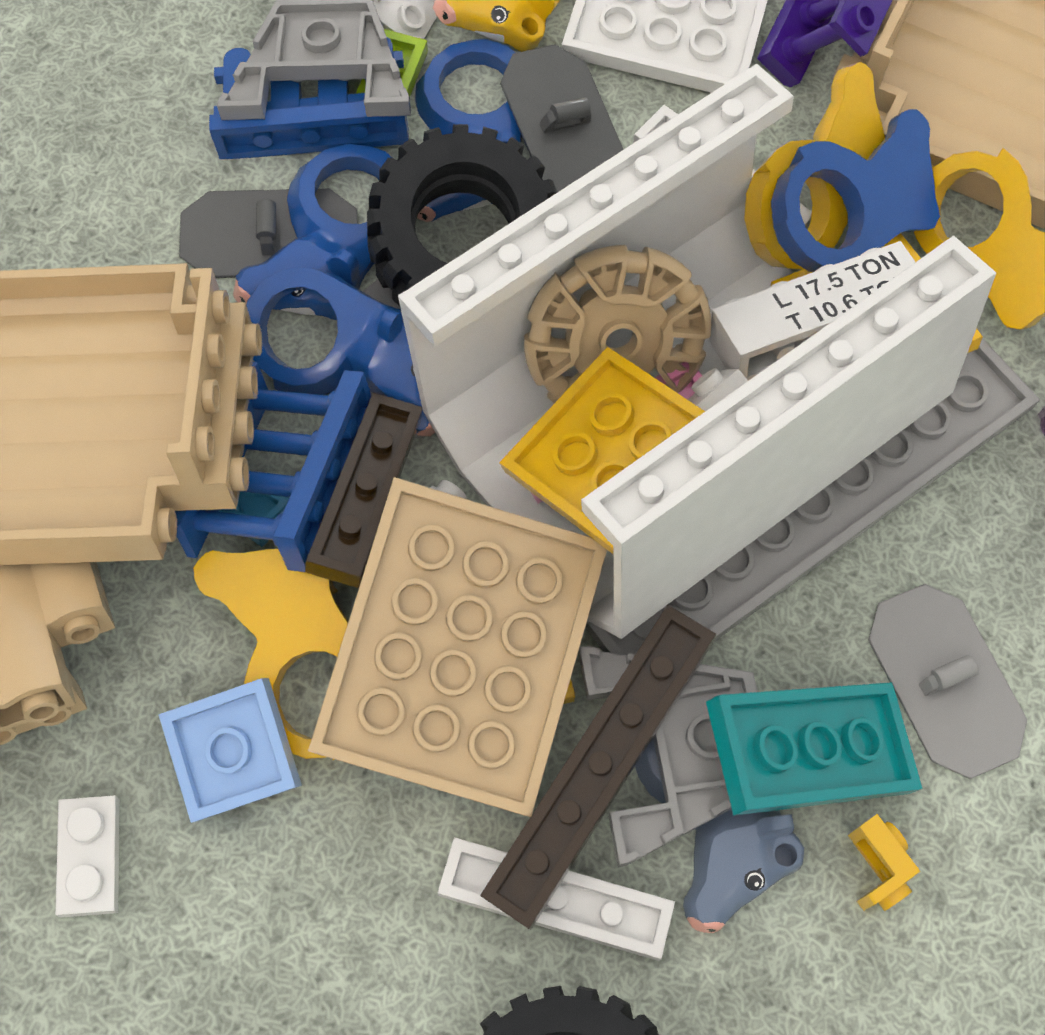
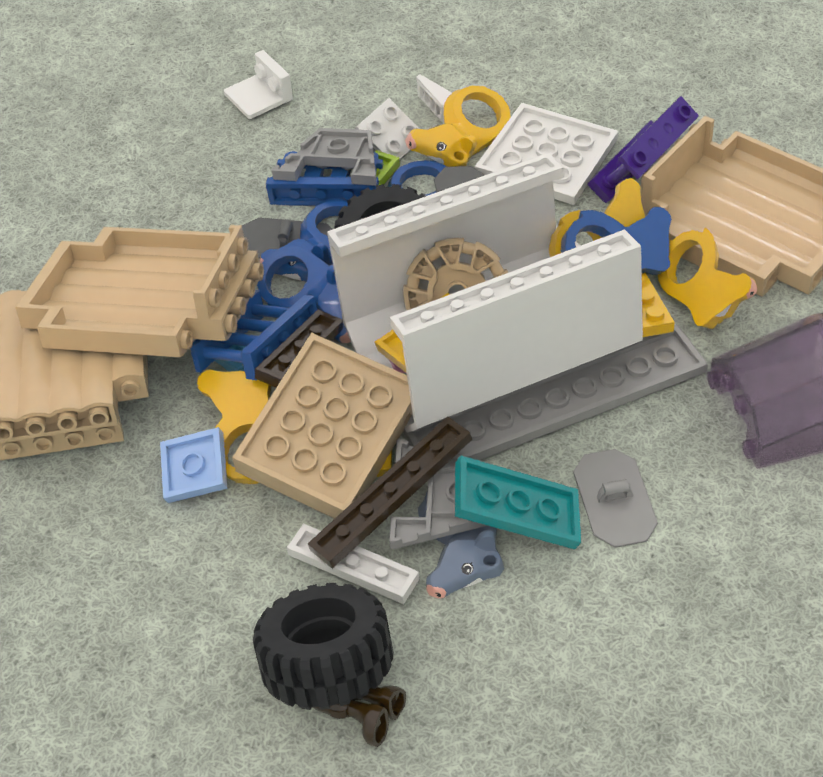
camera: 20 degrees right, 20 degrees down
(87, 856) = (104, 508): white plate -> none
(886, 853) = (550, 573): yellow bracket -> none

